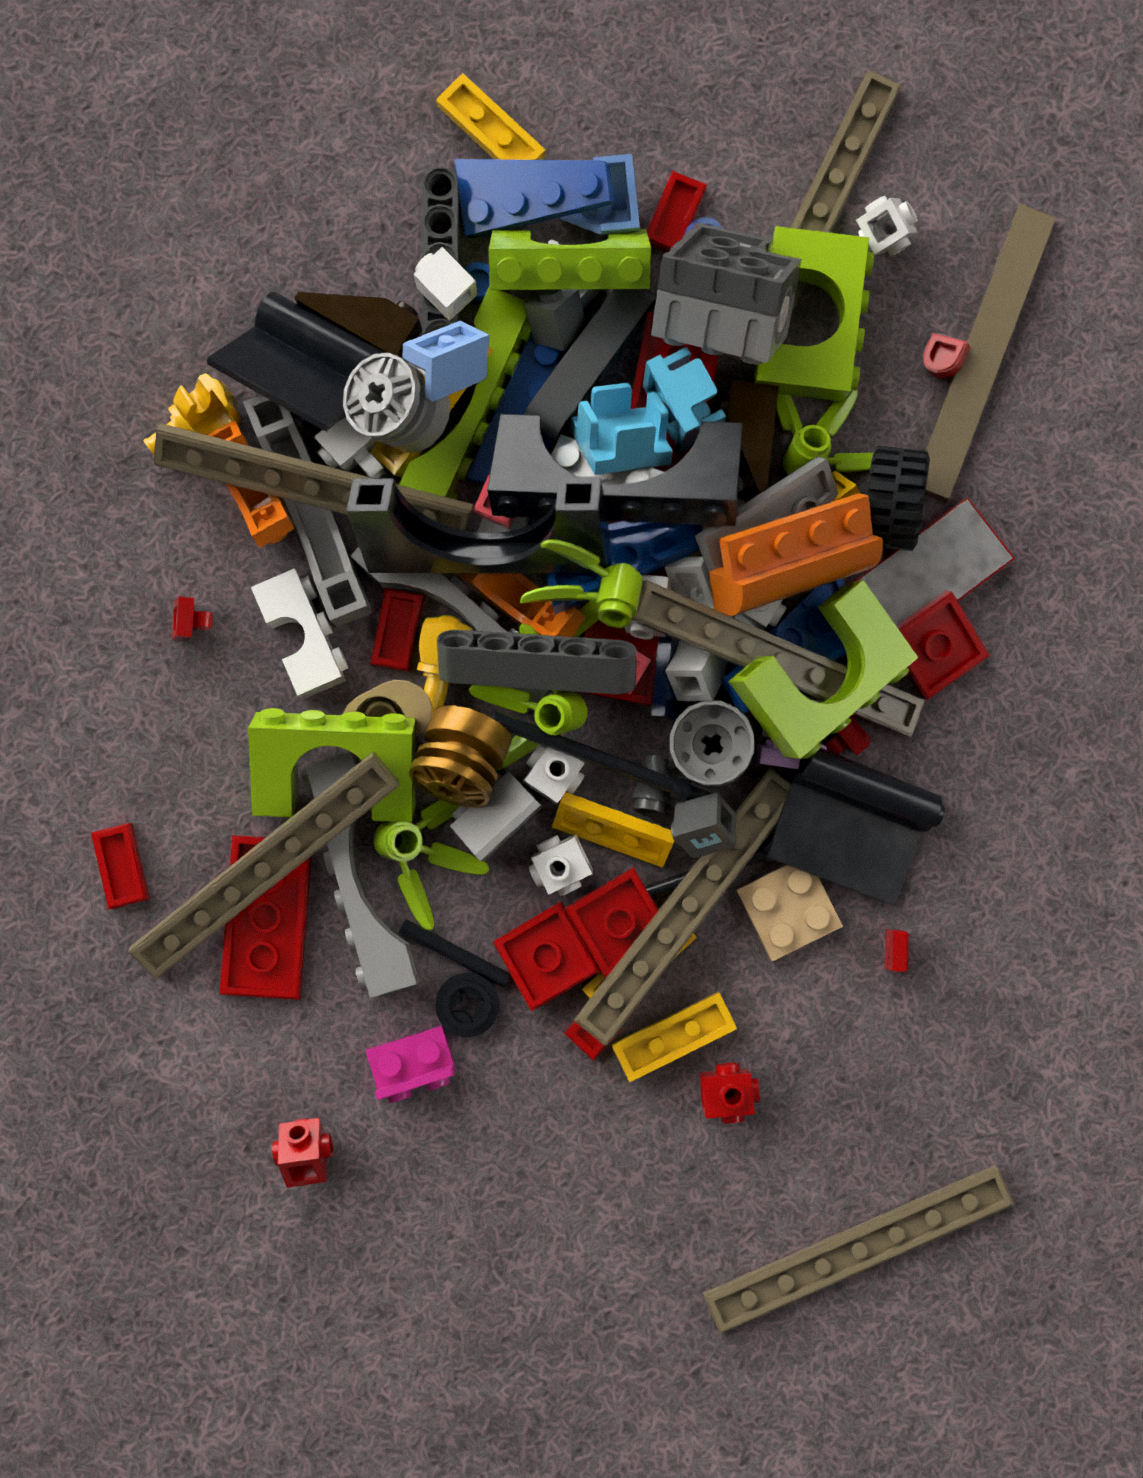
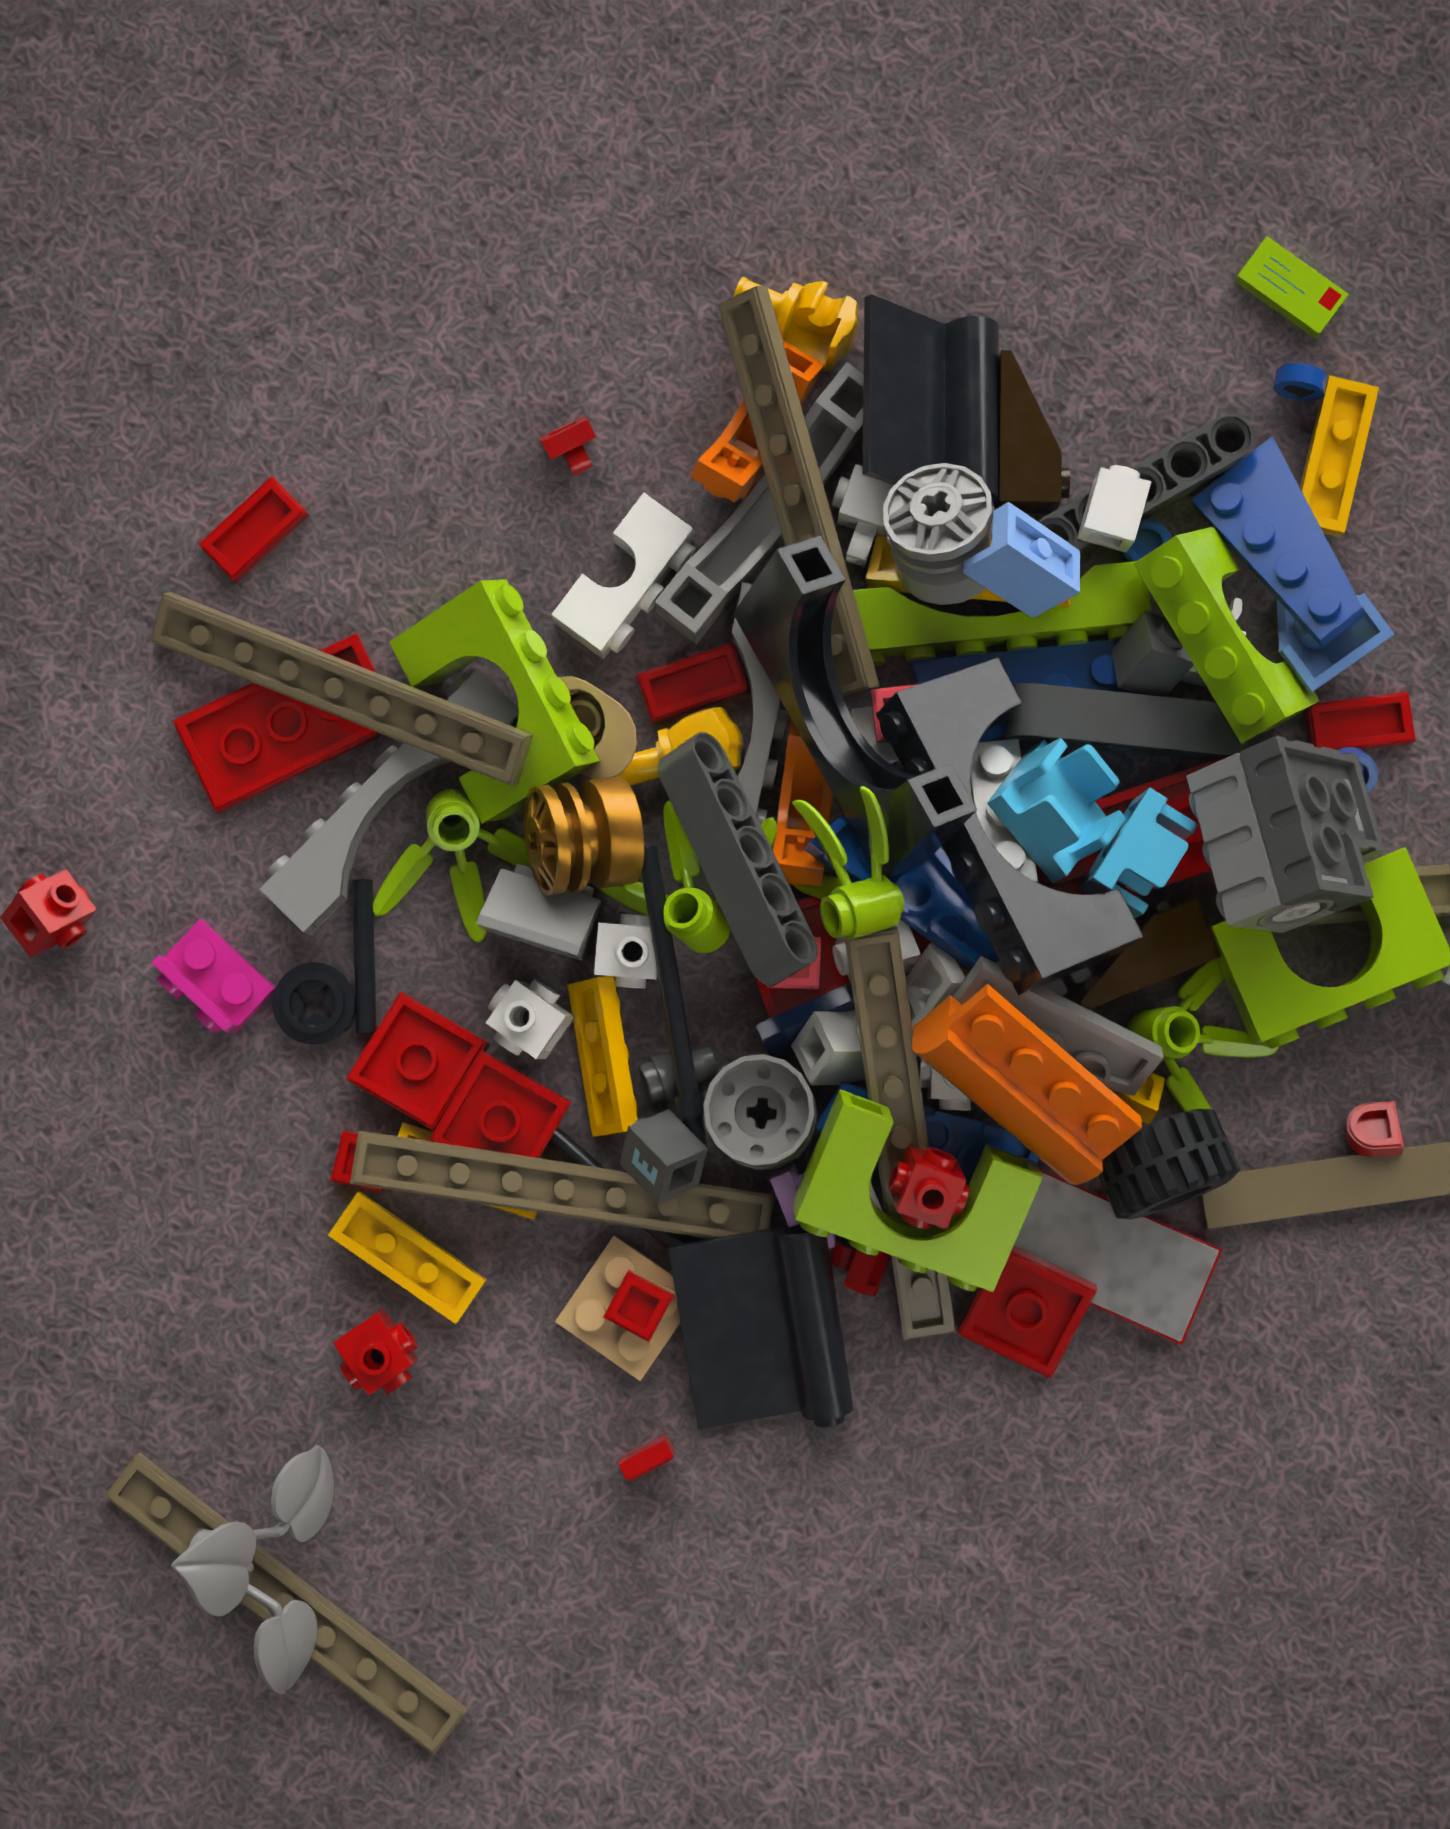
camera: 65 degrees right, 0 degrees up
(362, 92) = (1291, 287): none -> lime tile
(429, 120) = (1300, 382): none -> blue tile
(794, 898) = (638, 1305): none -> red tile
(814, 1274) = (220, 1559): none -> light grey plant
(826, 659) = (925, 1171): none -> red brick

